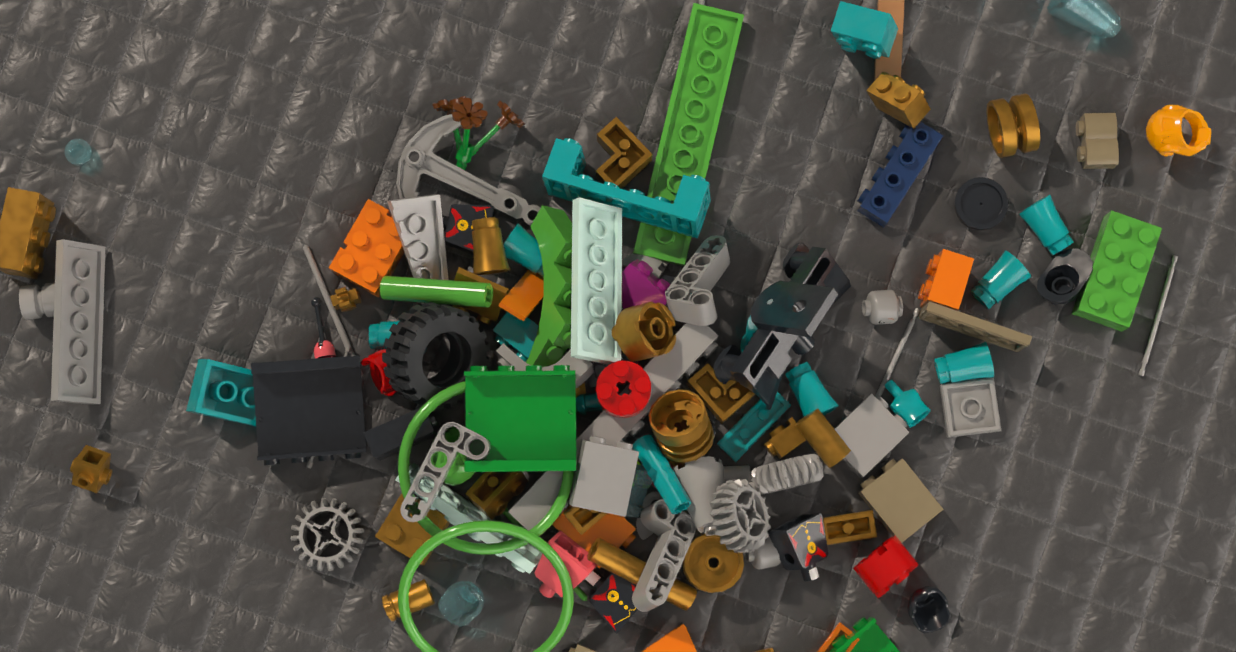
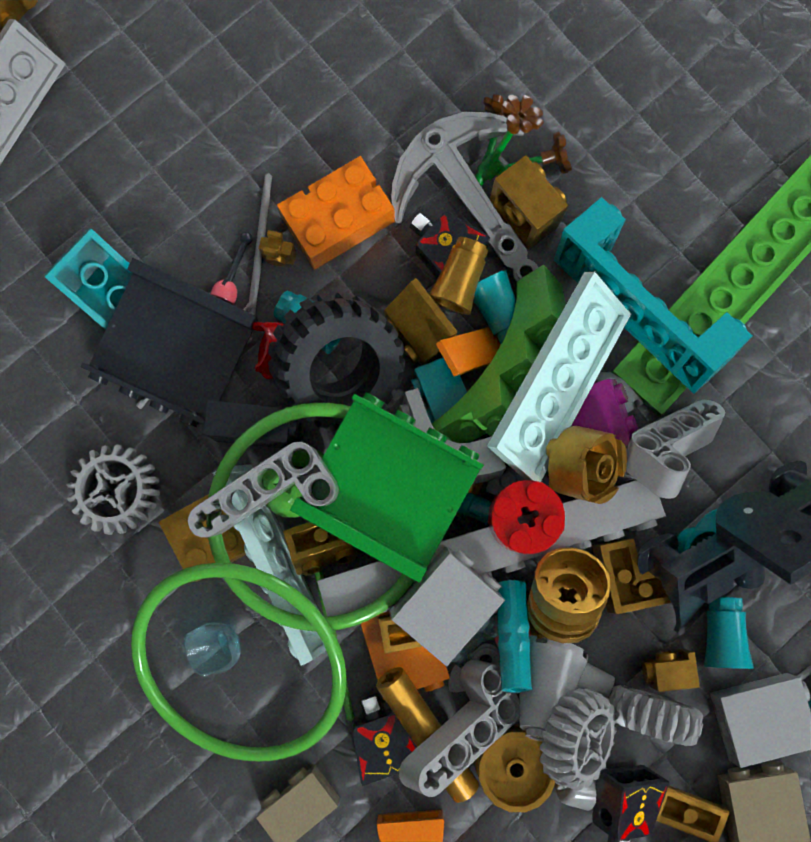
camera: 30 degrees right, 0 degrees up
(419, 598) = (169, 614): pearl gold piece -> none
(421, 234) = (394, 228): light grey wing -> none
(436, 291) = (378, 292): bright green piece -> none
(506, 165) = (528, 201): none -> pearl gold brick
(574, 559) = (360, 670): coral torso -> none
(626, 154) = (664, 255): pearl gold brick -> none
(752, 427) = (638, 634): teal tile -> none
(823, 438) = (720, 699): pearl gold brick -> none

